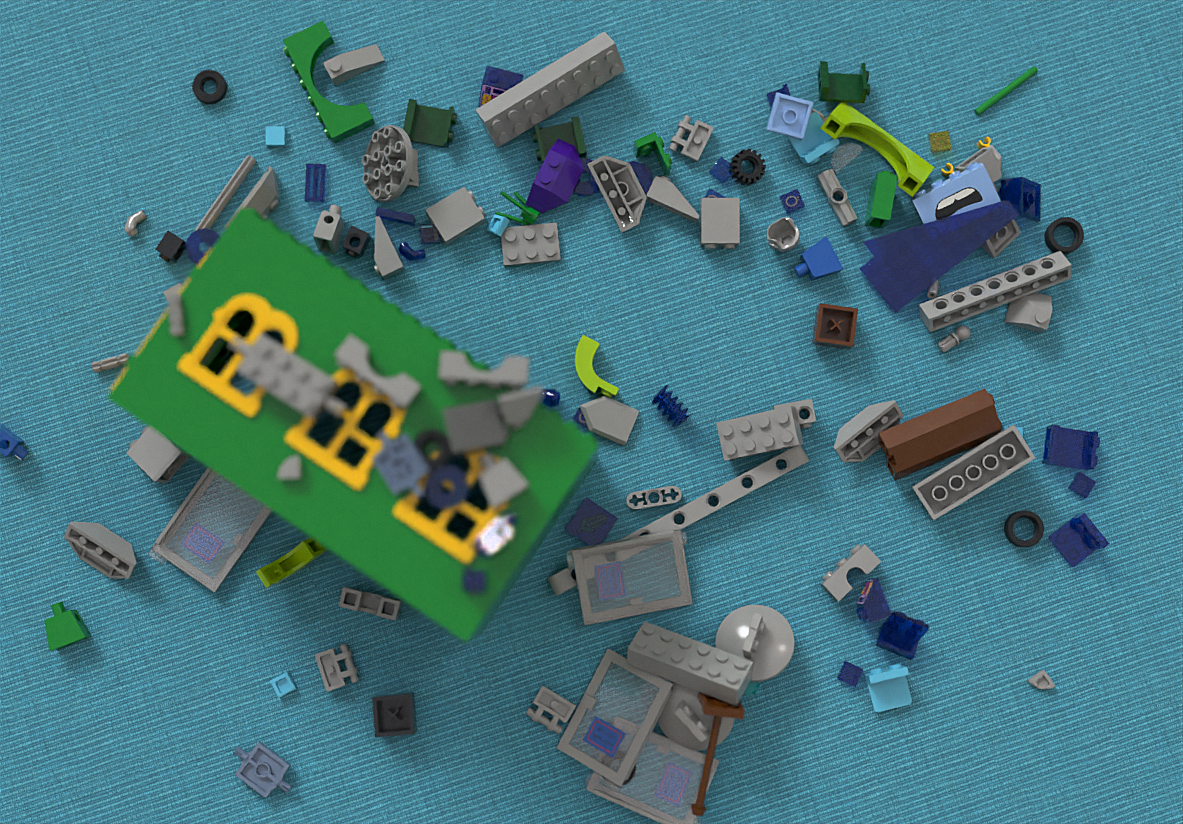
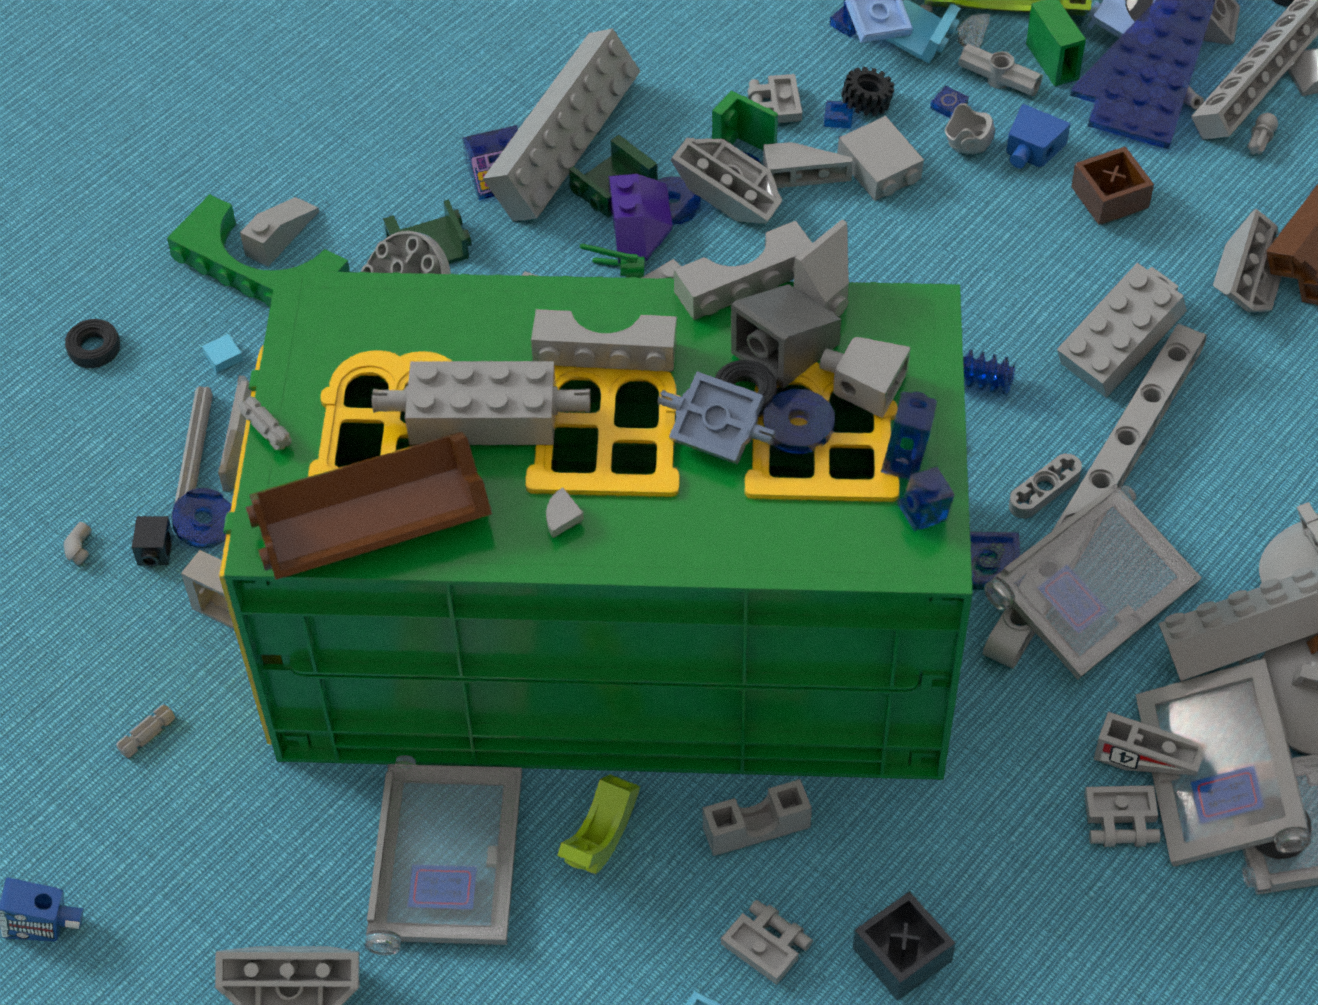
camera: 30 degrees left, 30 degrees down
(157, 455) = (297, 799): light grey slope -> none
(193, 408) = (368, 505): none -> reddish brown panel
(585, 689) = (1146, 748): none -> light grey slope

